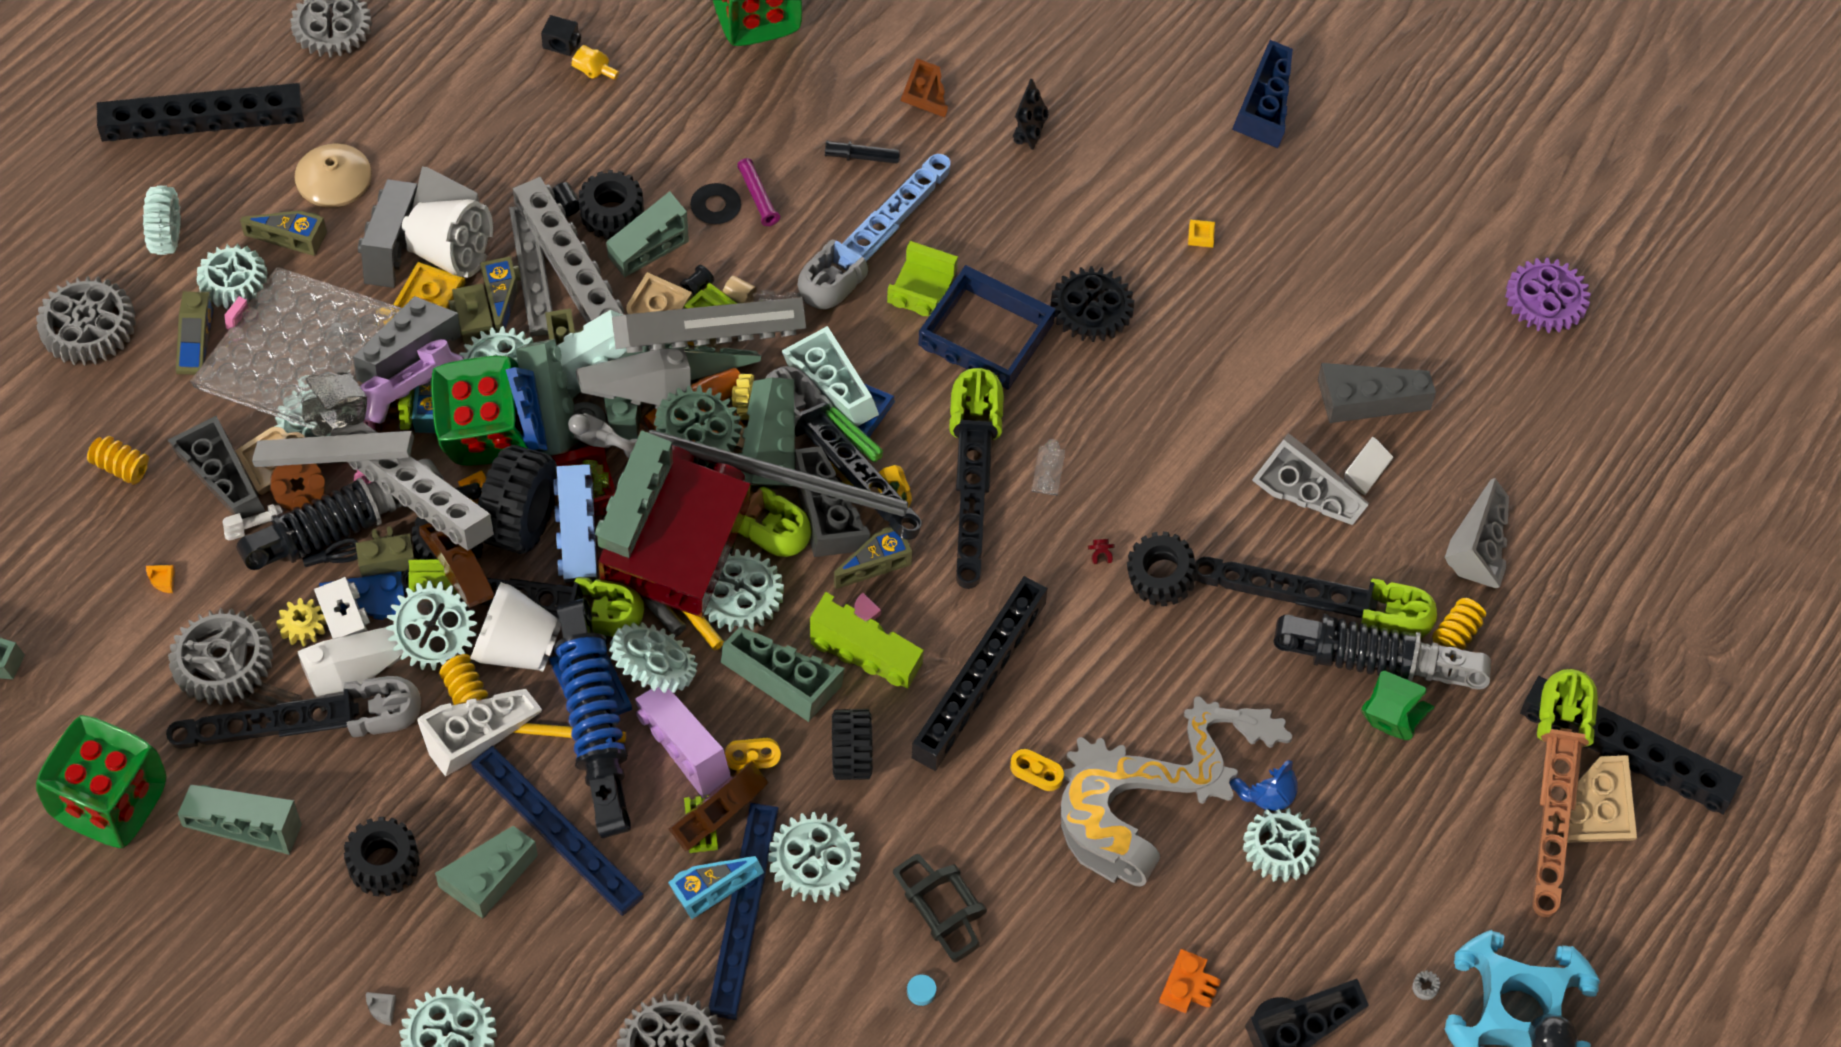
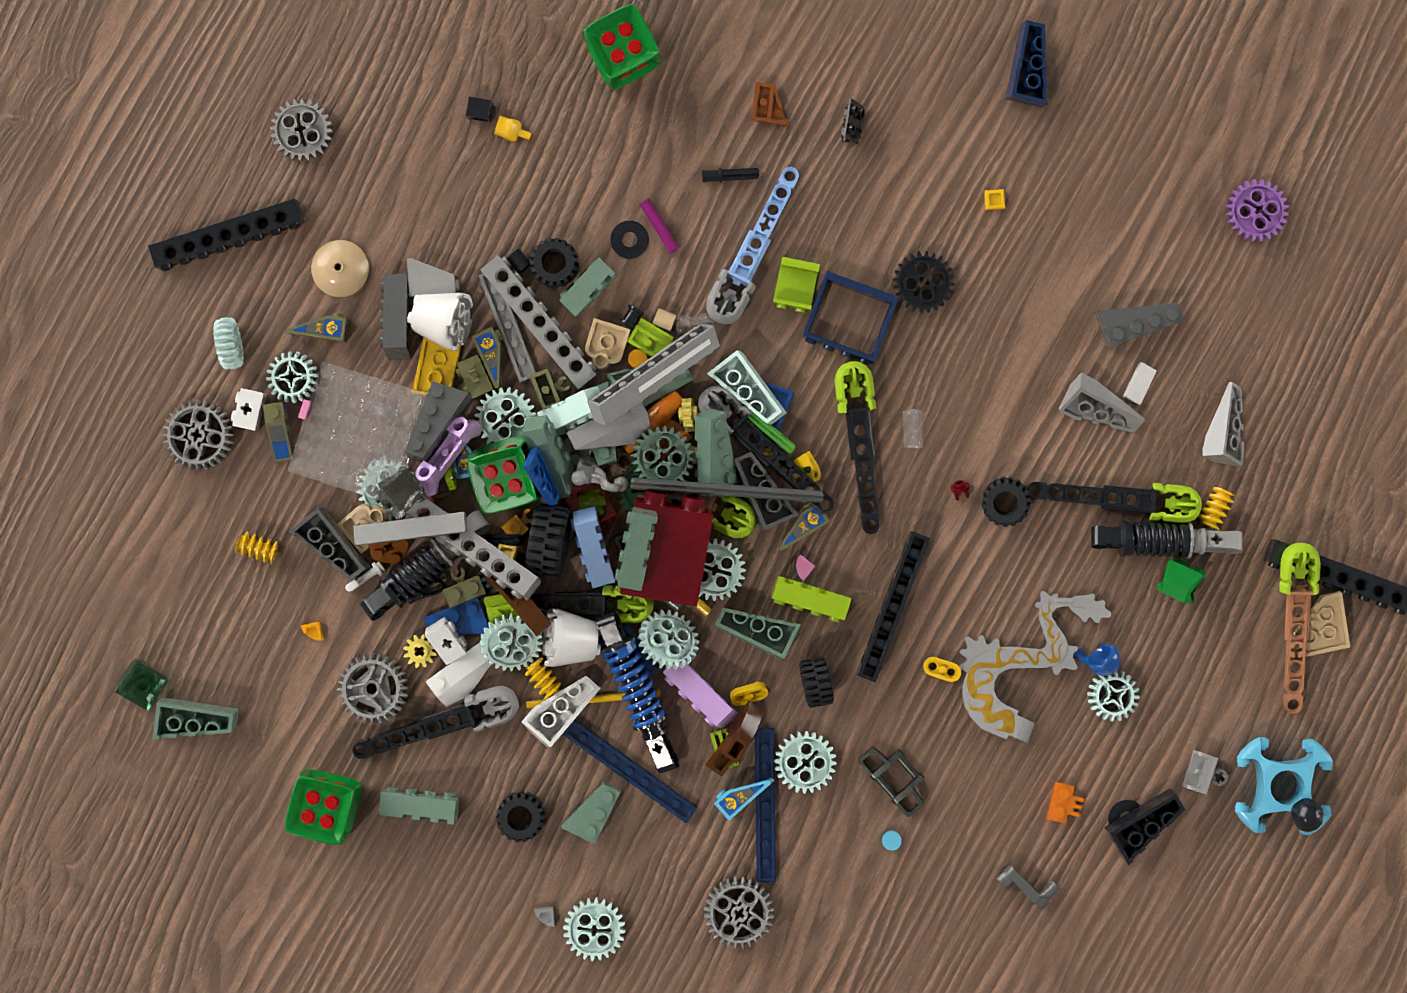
camera: 10 degrees left, 30 degrees up
(161, 303) = (245, 419): none -> white brick
(1398, 971) = (1200, 772): none -> light grey hinge

